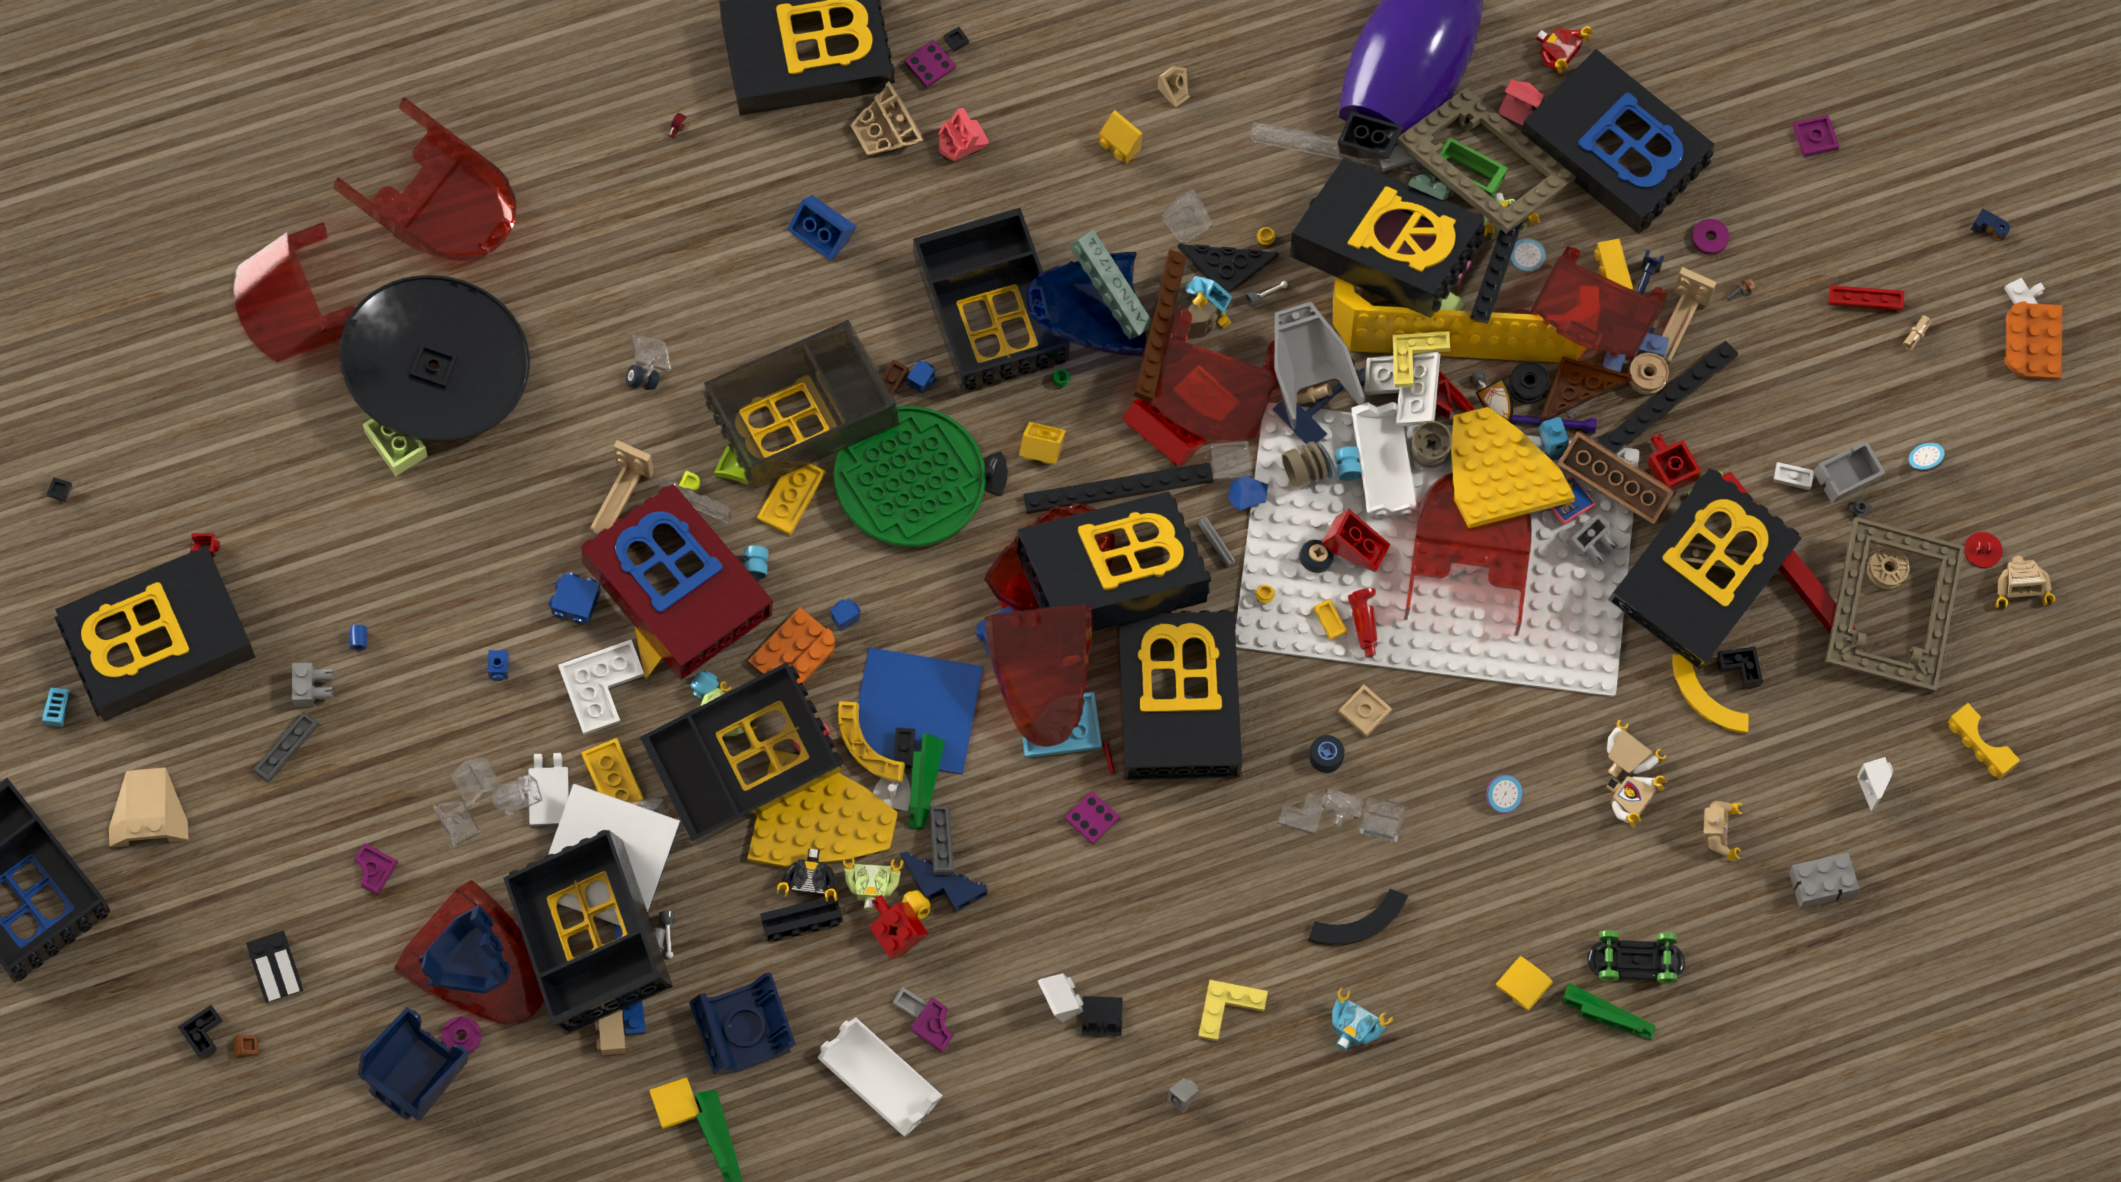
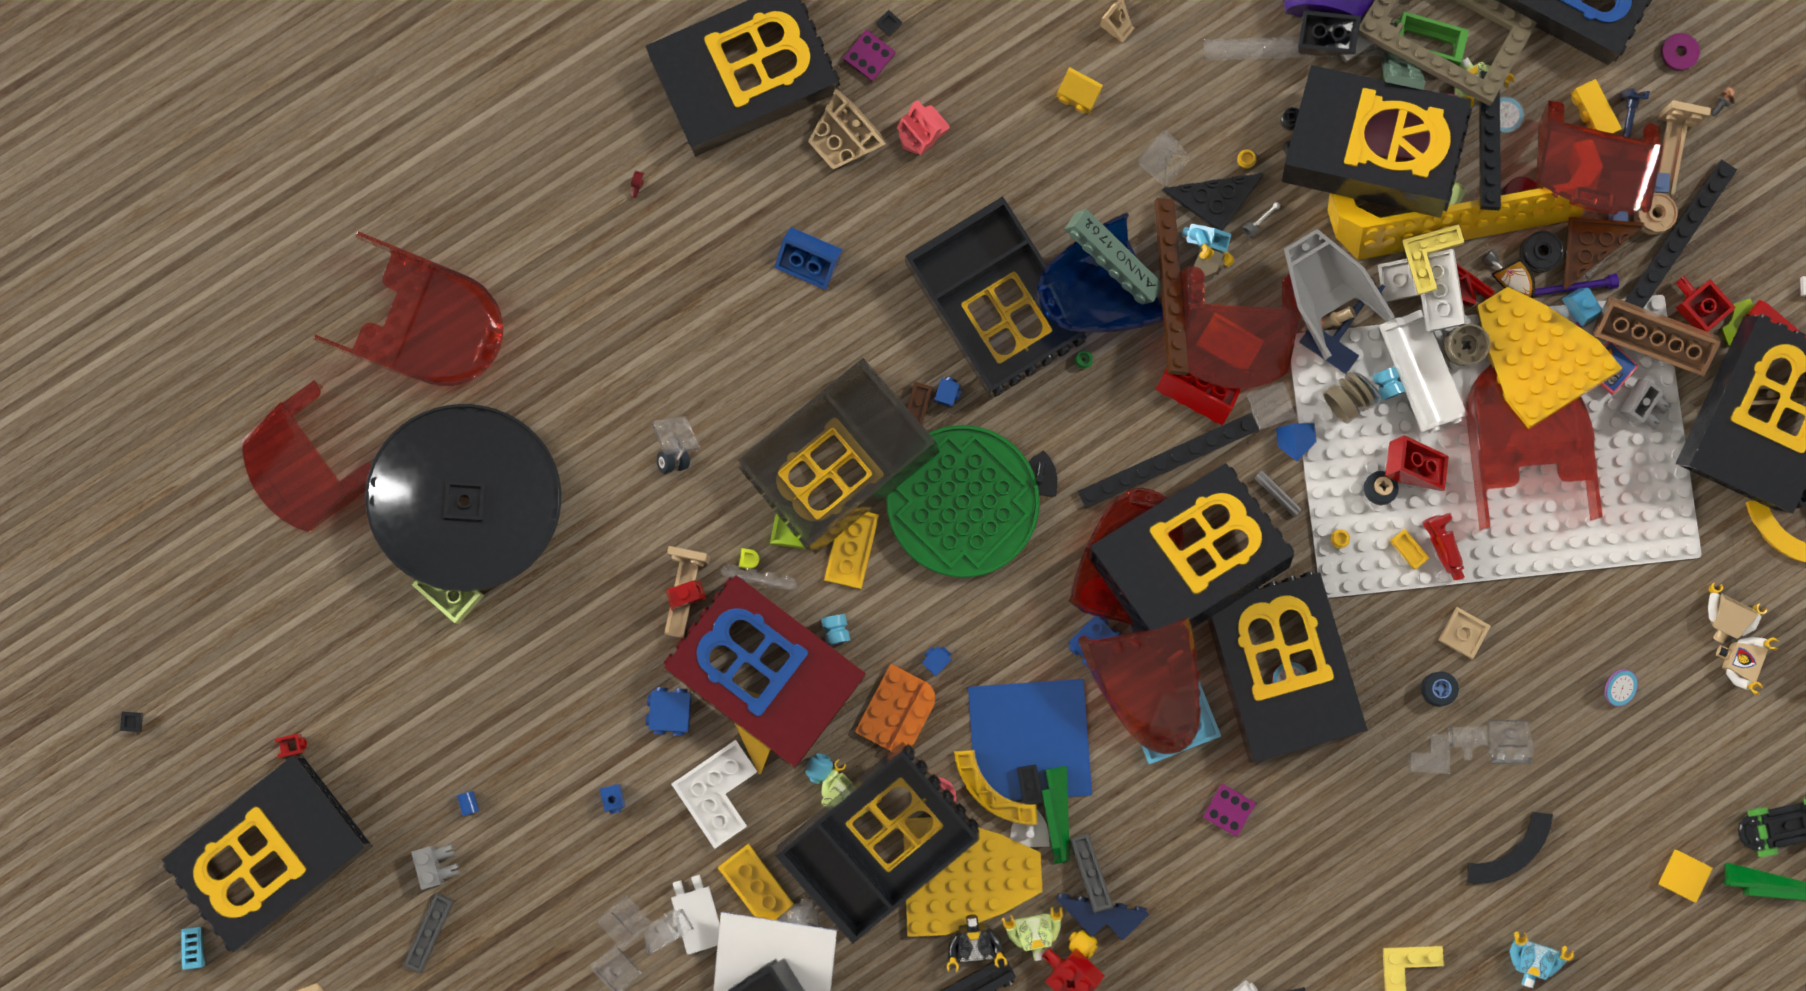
camera: 10 degrees left, 15 degrees up
(620, 494) = (685, 594): none -> red torso
(1042, 443) = (1083, 433): yellow slope -> none
(1110, 764) = (1229, 743): red piece -> none

